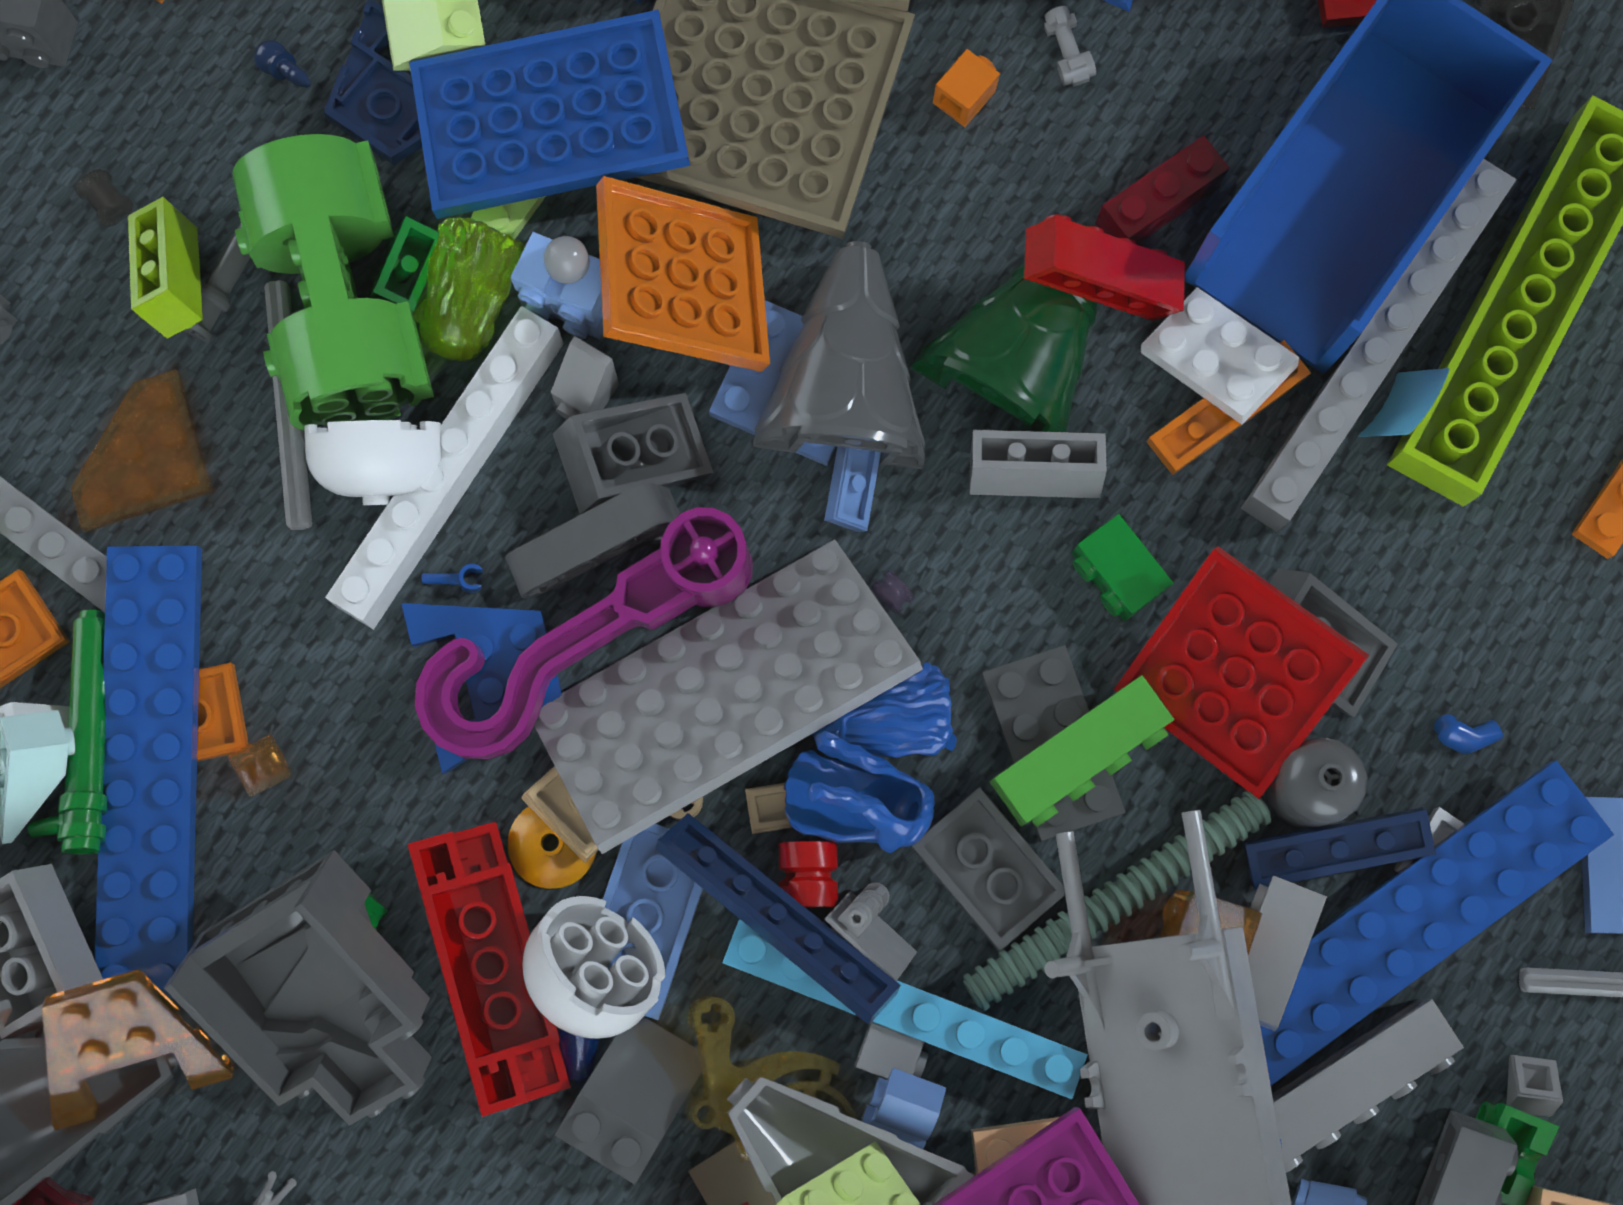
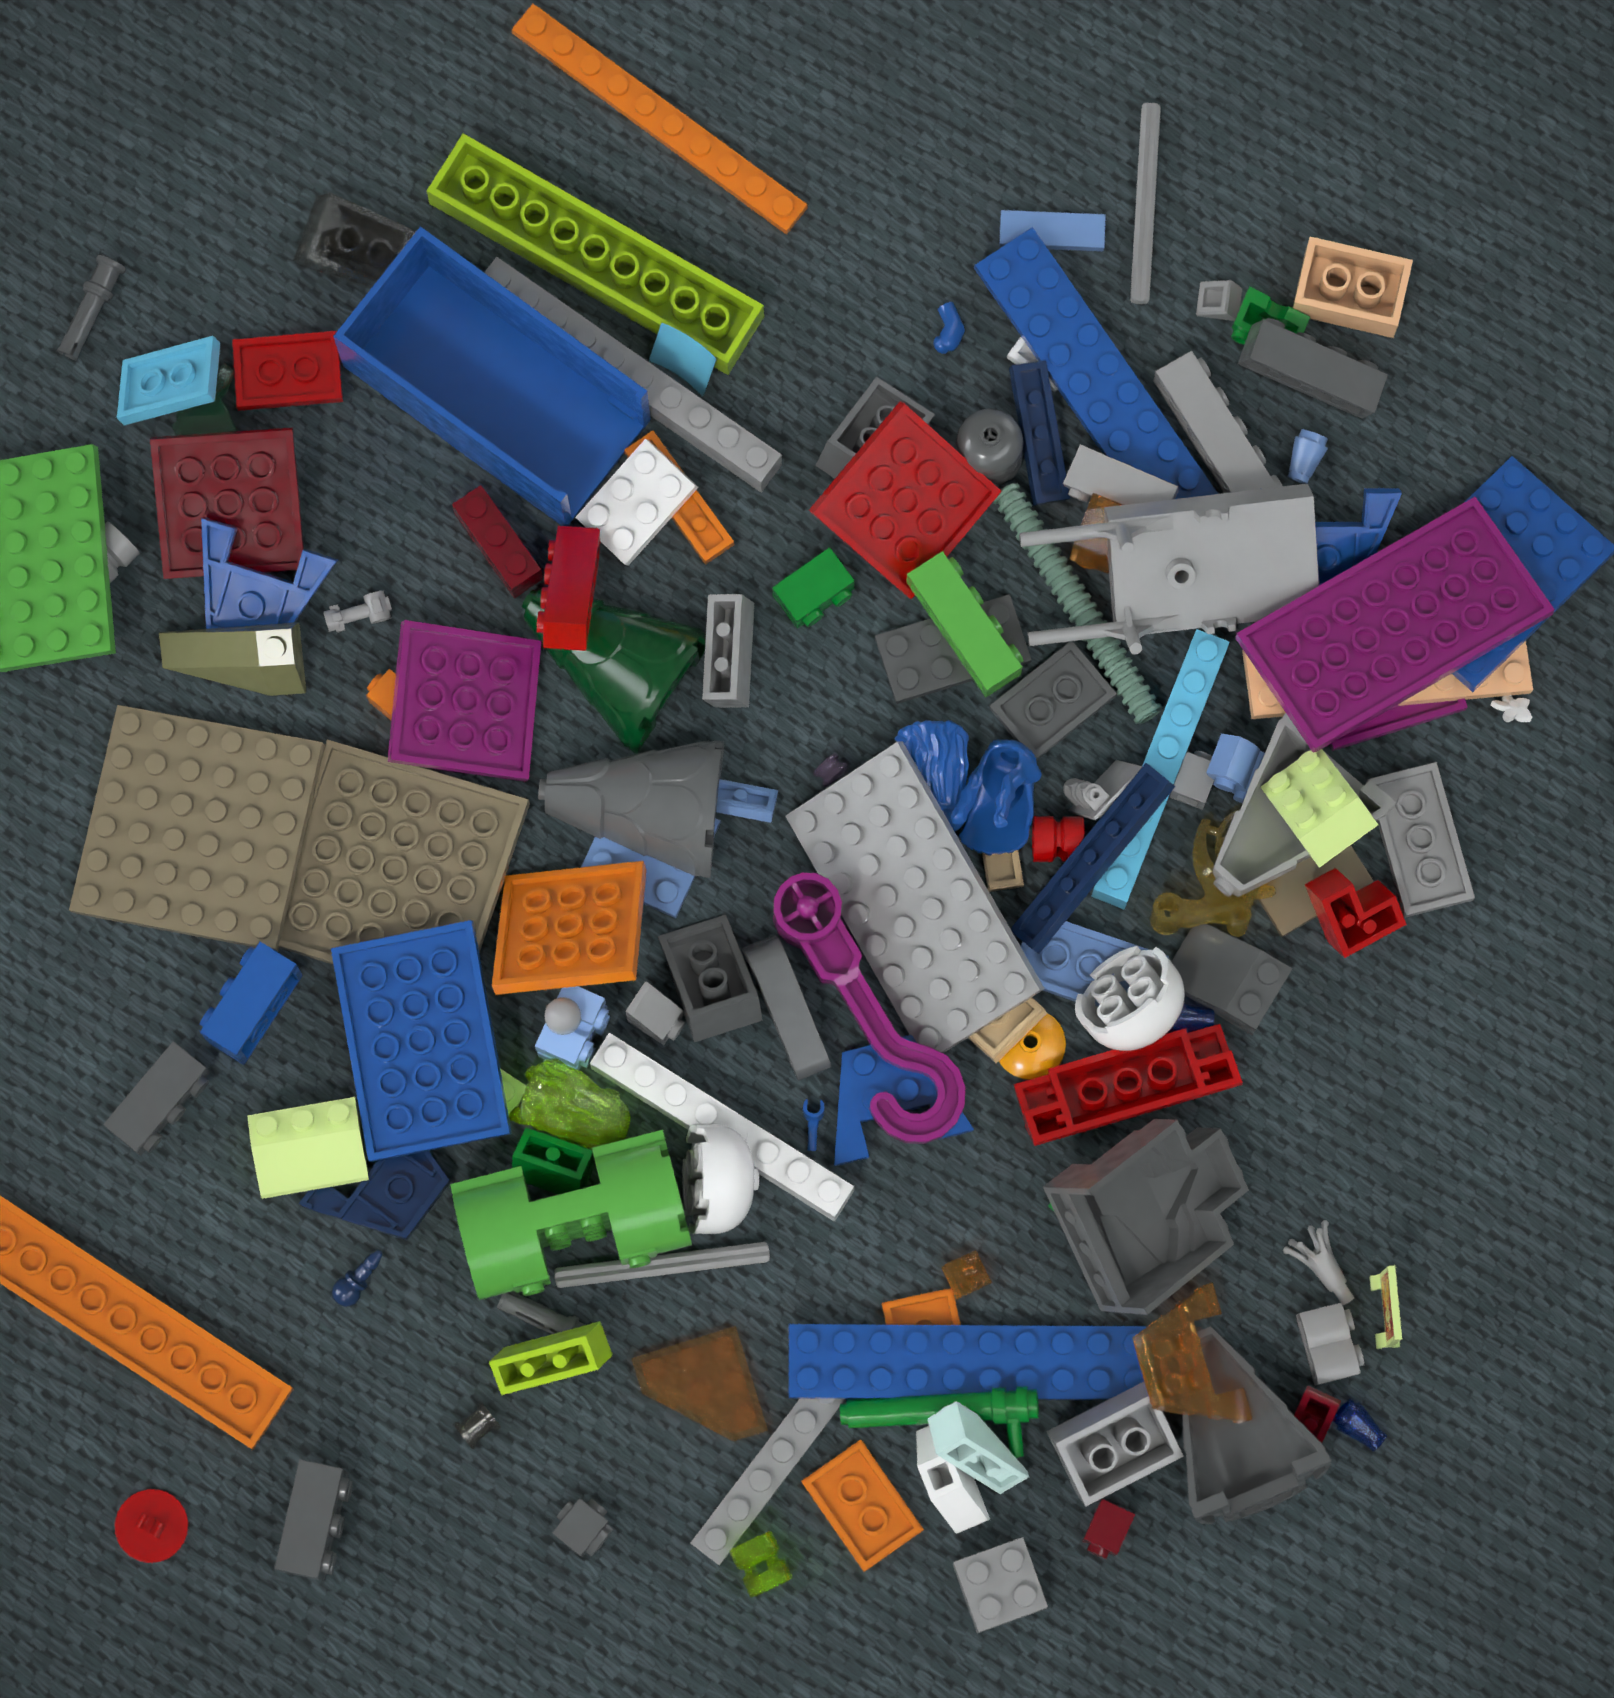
camera: 85 degrees left, 0 degrees up
(962, 156) = (464, 701): none -> magenta plate

